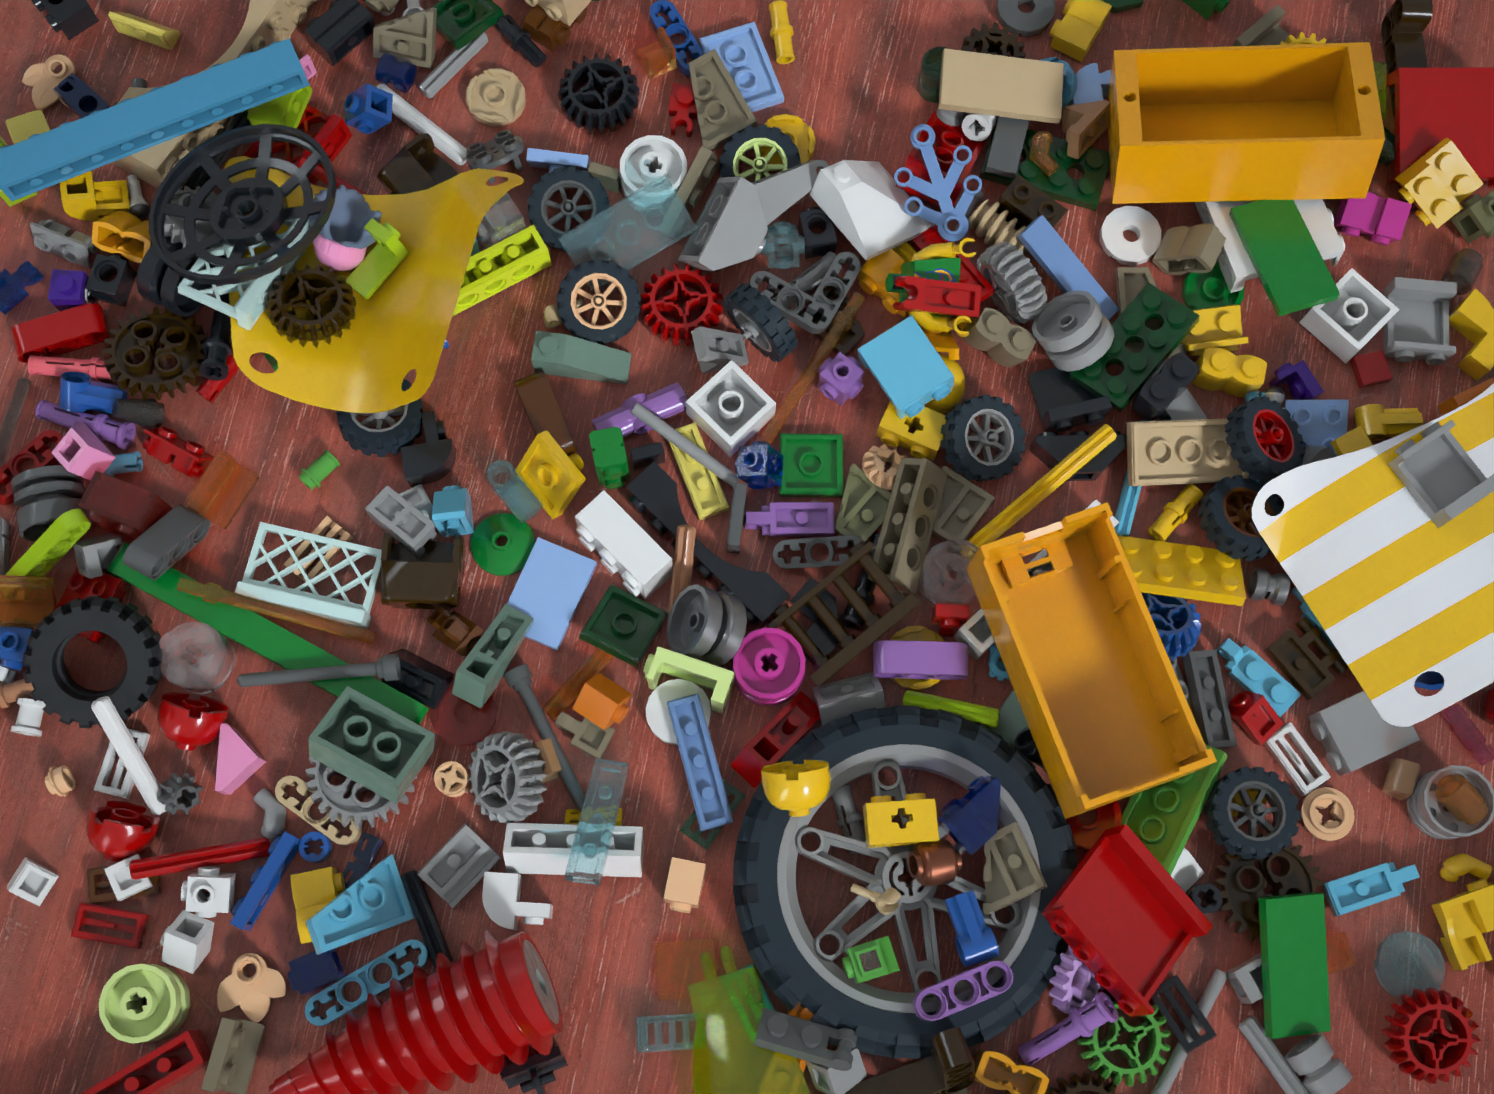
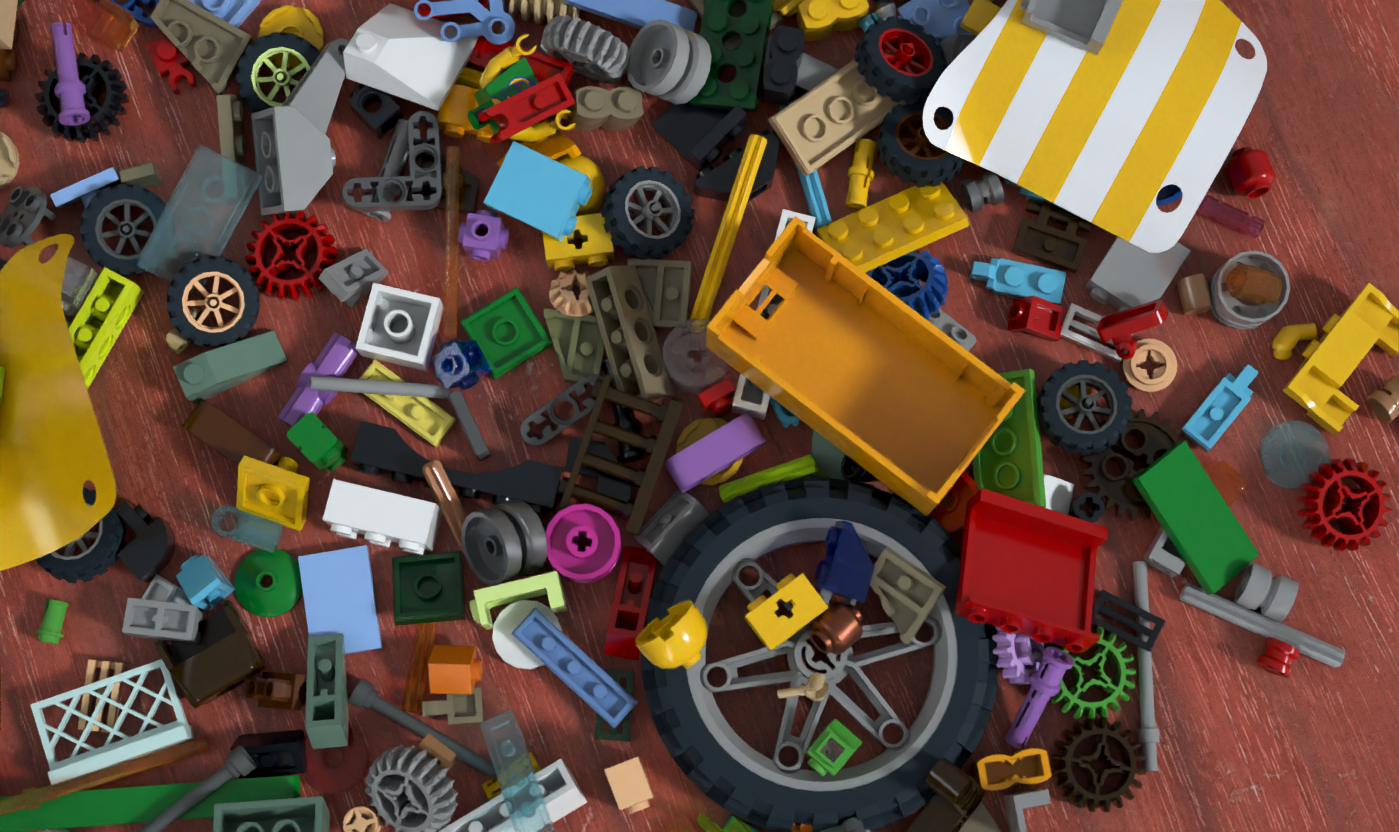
camera: 30 degrees left, 5 degrees up
(593, 77) = (69, 87): none -> medium lavender pin
(647, 454) = (351, 417): black tile -> none
(648, 160) = (173, 132): white wheel -> none
(760, 322) = (377, 230): black wheel -> none
(783, 245) = (352, 141): clear light blue brick -> none
(793, 519) = (521, 394): medium lavender hinge -> none
(844, 798) = (722, 618): light grey pin -> none
(973, 938) = (910, 672): blue piece -> none
(979, 988) = (939, 711): medium lavender beam -> none
(1209, 698) = (989, 327): dark grey plate -> none
(1325, 764) = (1124, 323): none -> red piece

